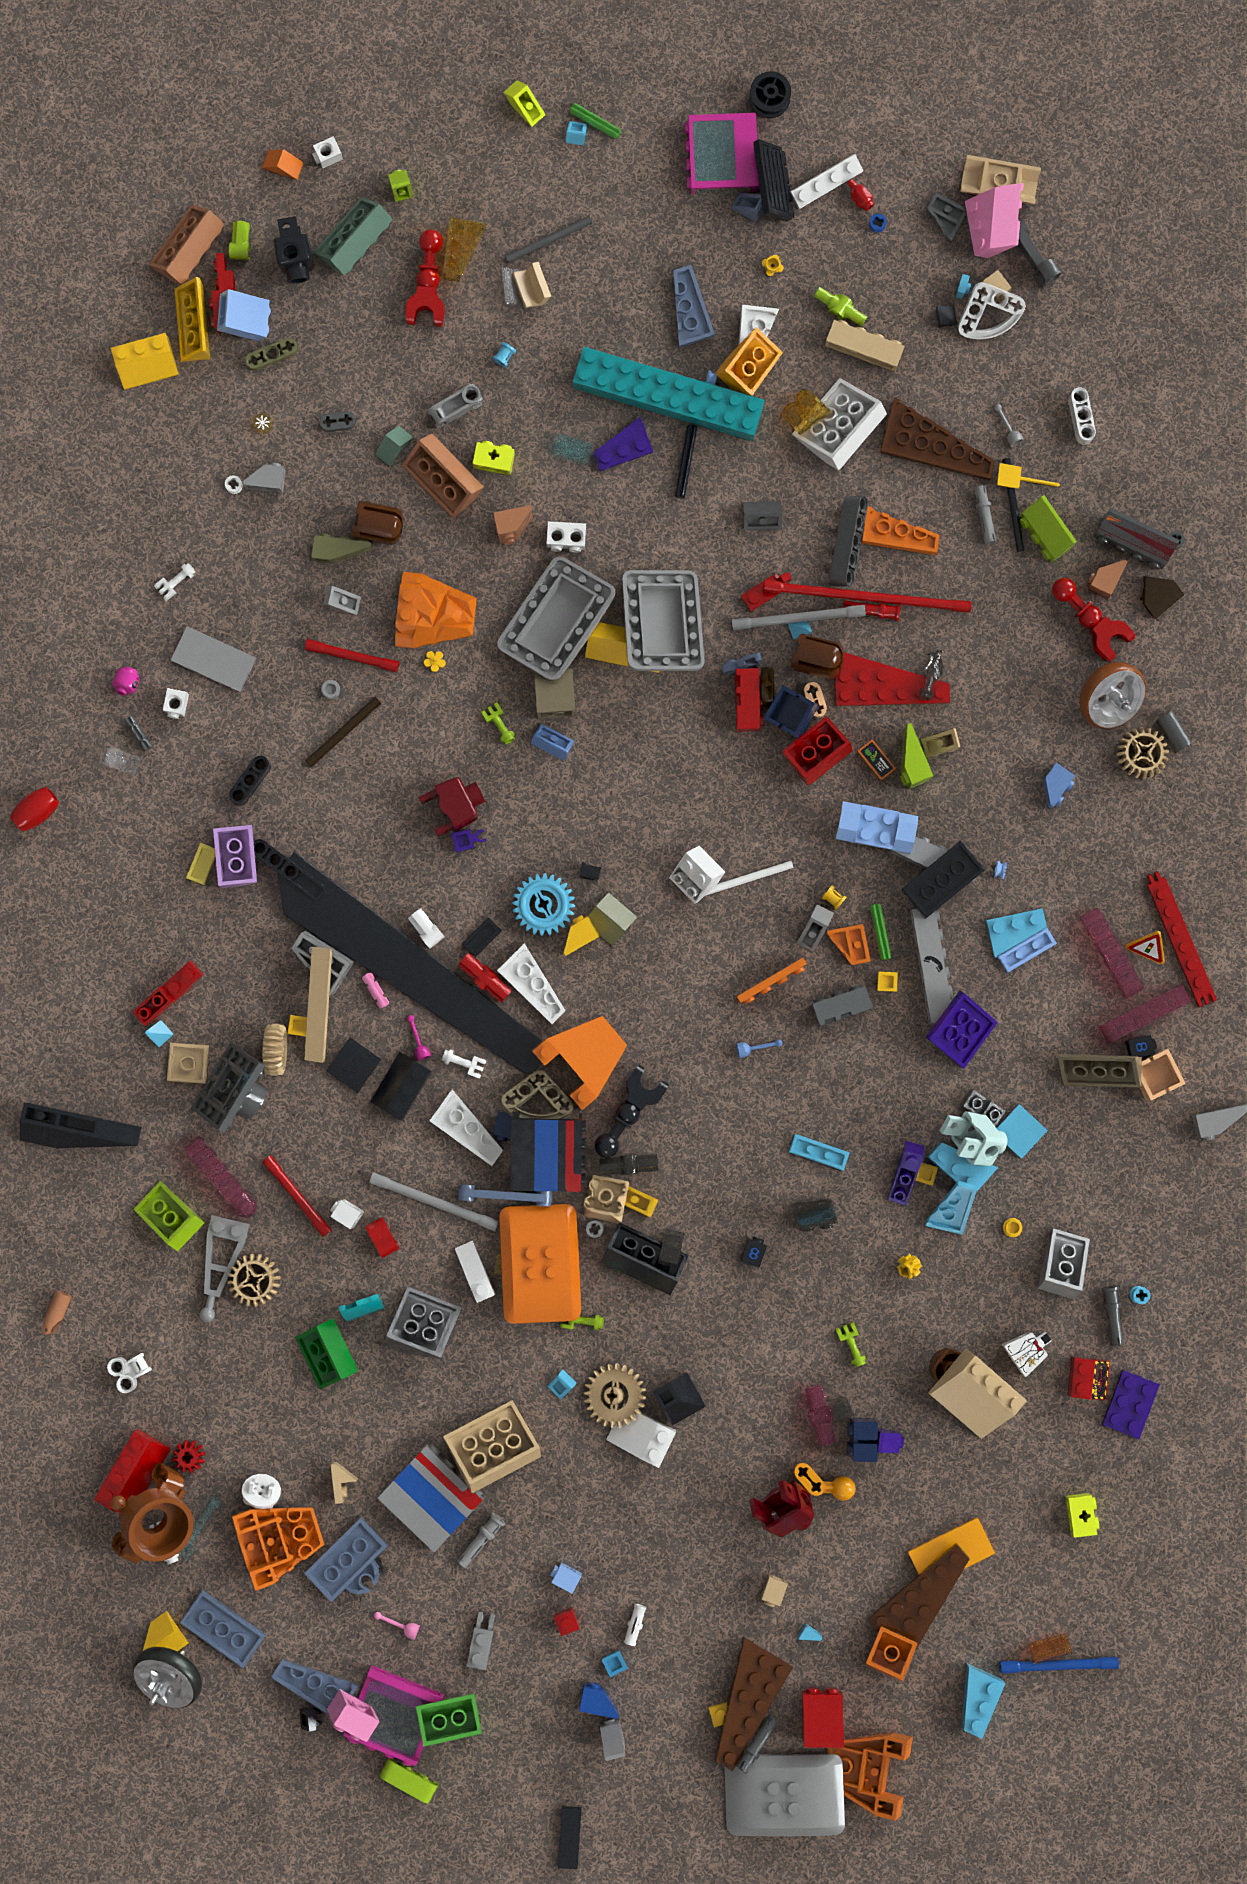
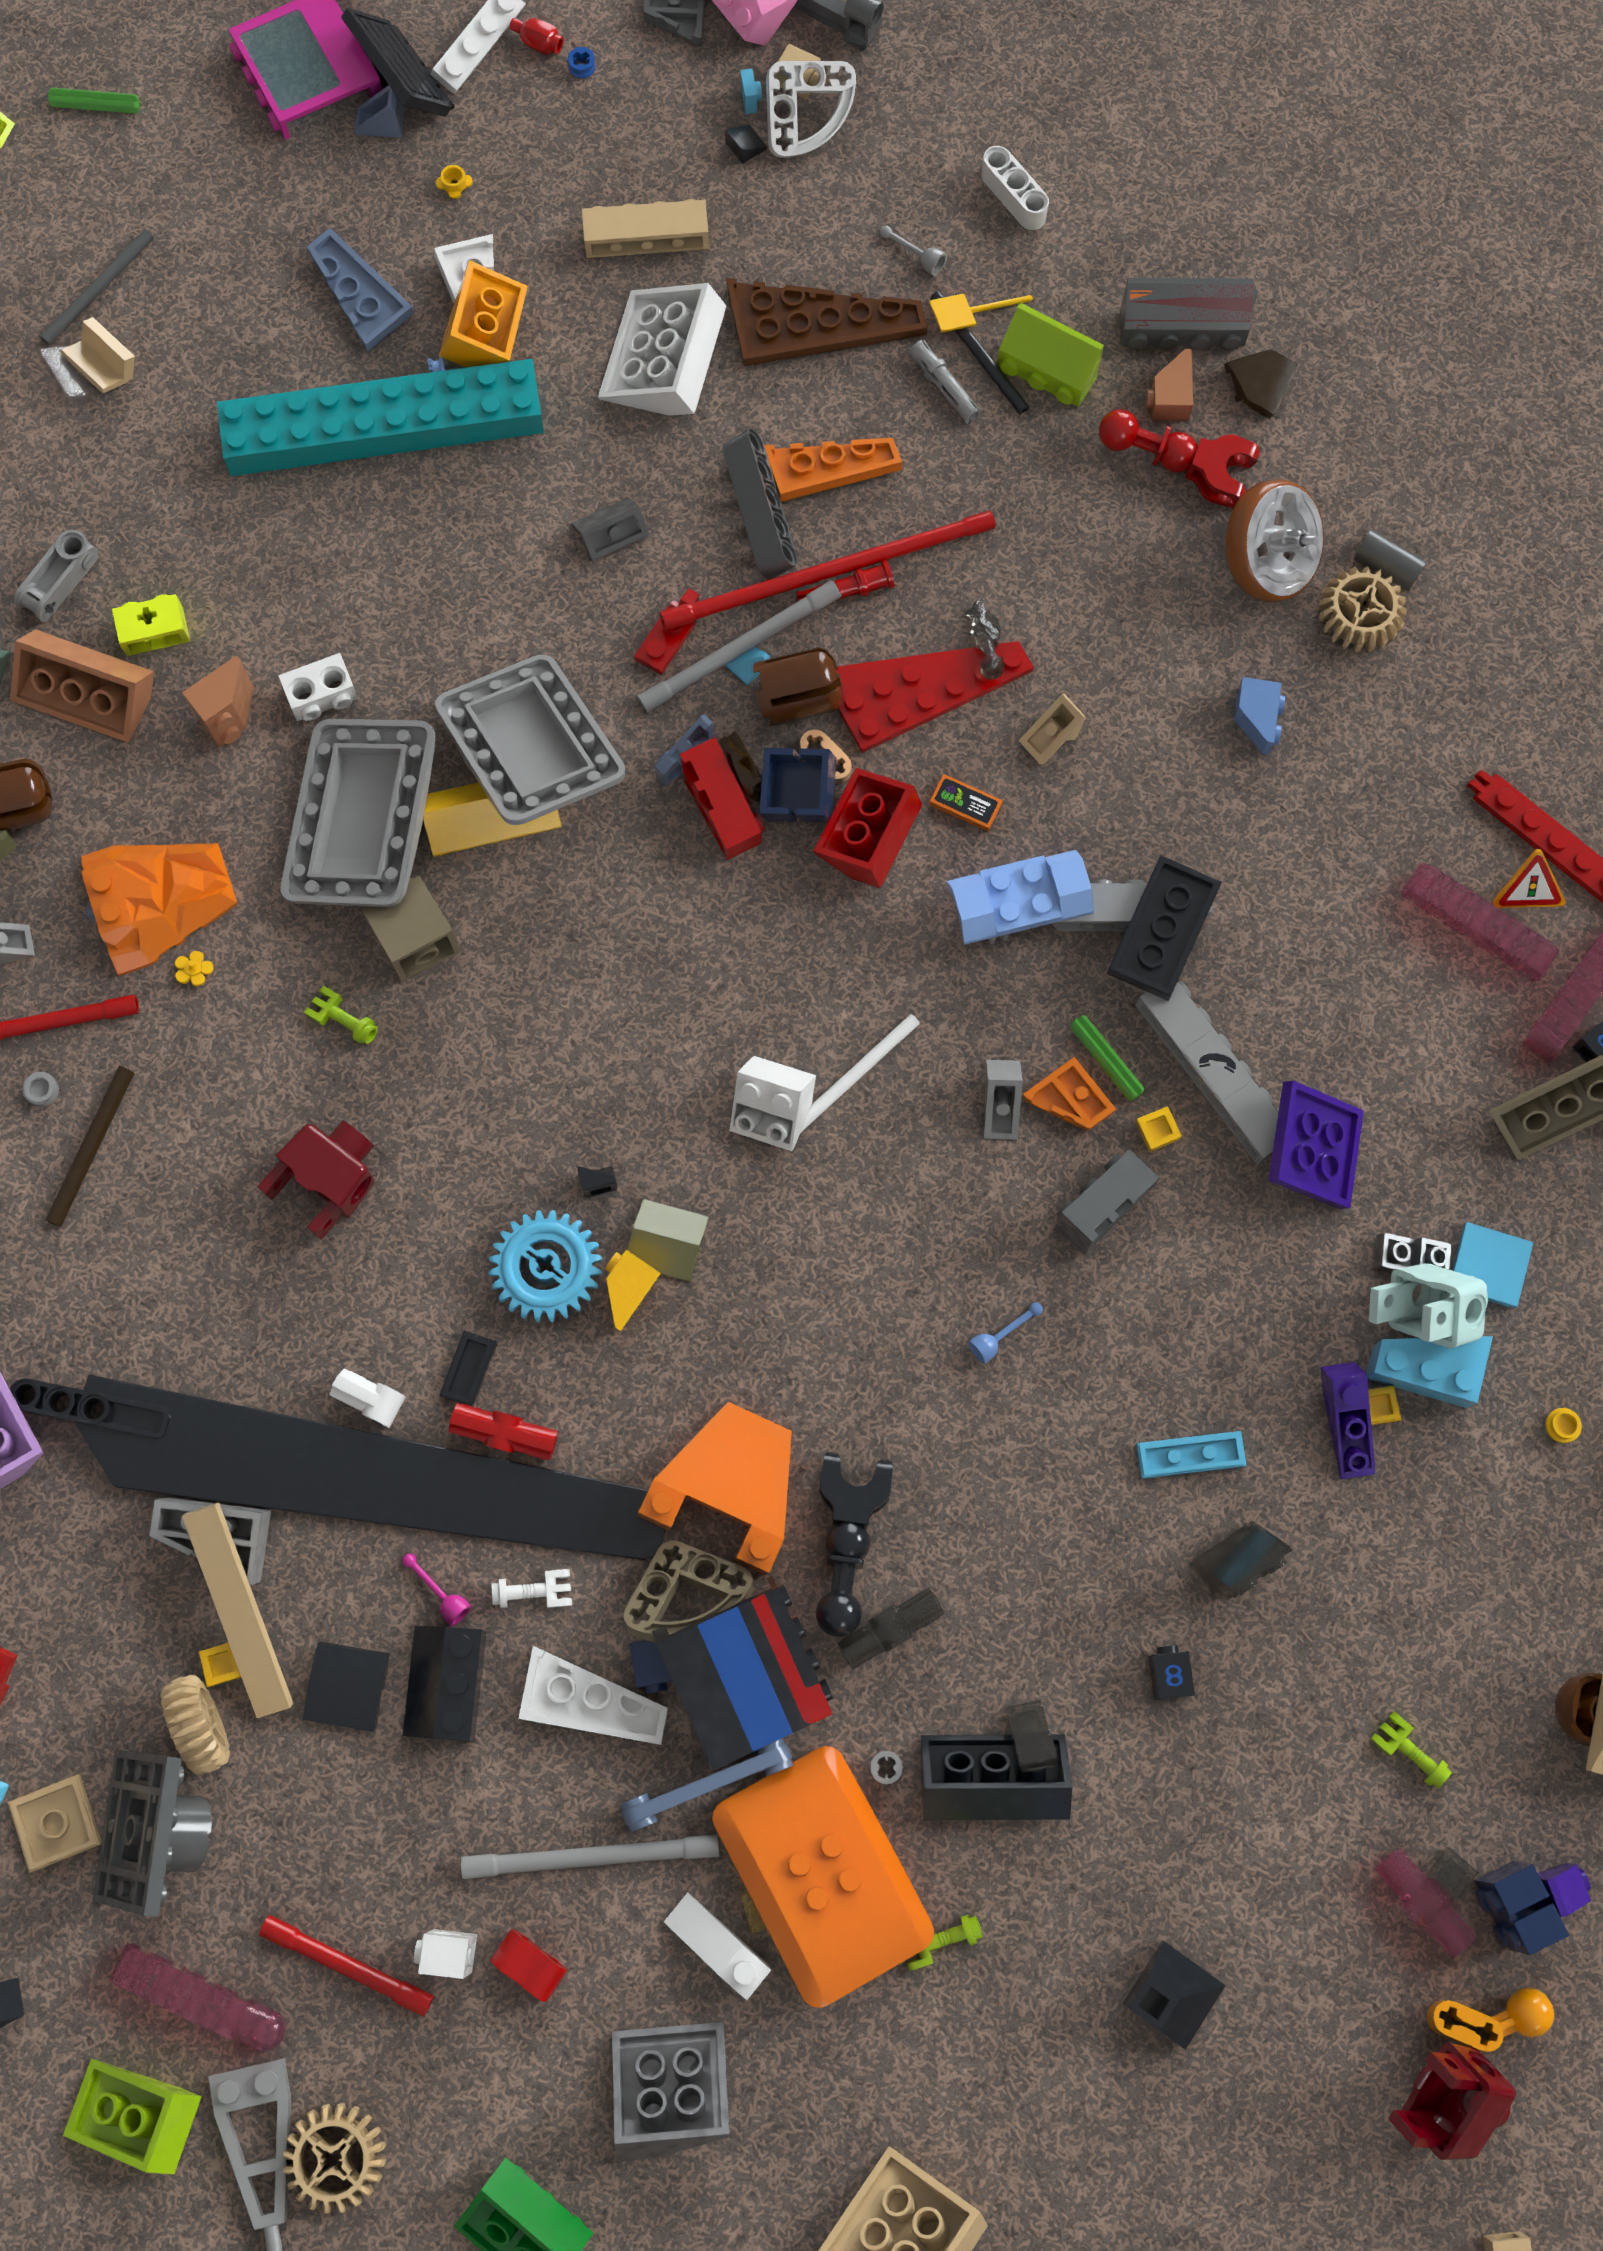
camera: 25 degrees left, 10 degrees down
(361, 1308) = (548, 2112): teal slope -> none
(375, 990) = (328, 1541): bright pink axle -> none
(465, 840) = (369, 1225): dark purple plate -> none
(503, 354) = (99, 471): medium azure bush -> none
(529, 980) = (578, 1401): white wing -> none
(552, 742) = (441, 1007): medium blue slope -> none
(561, 1384) = (961, 2072): medium azure slope -> none
(572, 448) = (270, 559): clear light blue slope -> none
(576, 133) = (72, 129): medium azure slope -> none
(606, 1199) = (881, 1706): tan slope -> none
(614, 1415) = (1076, 2082): tan gear -> none
(624, 447) = (350, 523): dark purple wing -> none
(640, 1202) = (933, 1683): yellow slope -> none
(643, 1438) = (1143, 2096): white slope -> none
(686, 461) = (455, 503): black axle -> none
(764, 986) = (984, 1203): orange plate -> none
(805, 411) = (603, 351): clear yellow slope -> none
(834, 897) = (1007, 1038): yellow bush -> none
(840, 306) = (581, 191): lime pin -> none
(909, 1266) = (1436, 1571): yellow gear -> none
(914, 764) = (1028, 775): lime slope -> none
(953, 1209) = (1459, 1438): medium azure wing -> none
(1000, 870) = (1241, 877): light blue bush -> none
(1013, 929) = (1310, 957): medium azure wing -> none
(1027, 950) = (1347, 979): light blue tile -> none

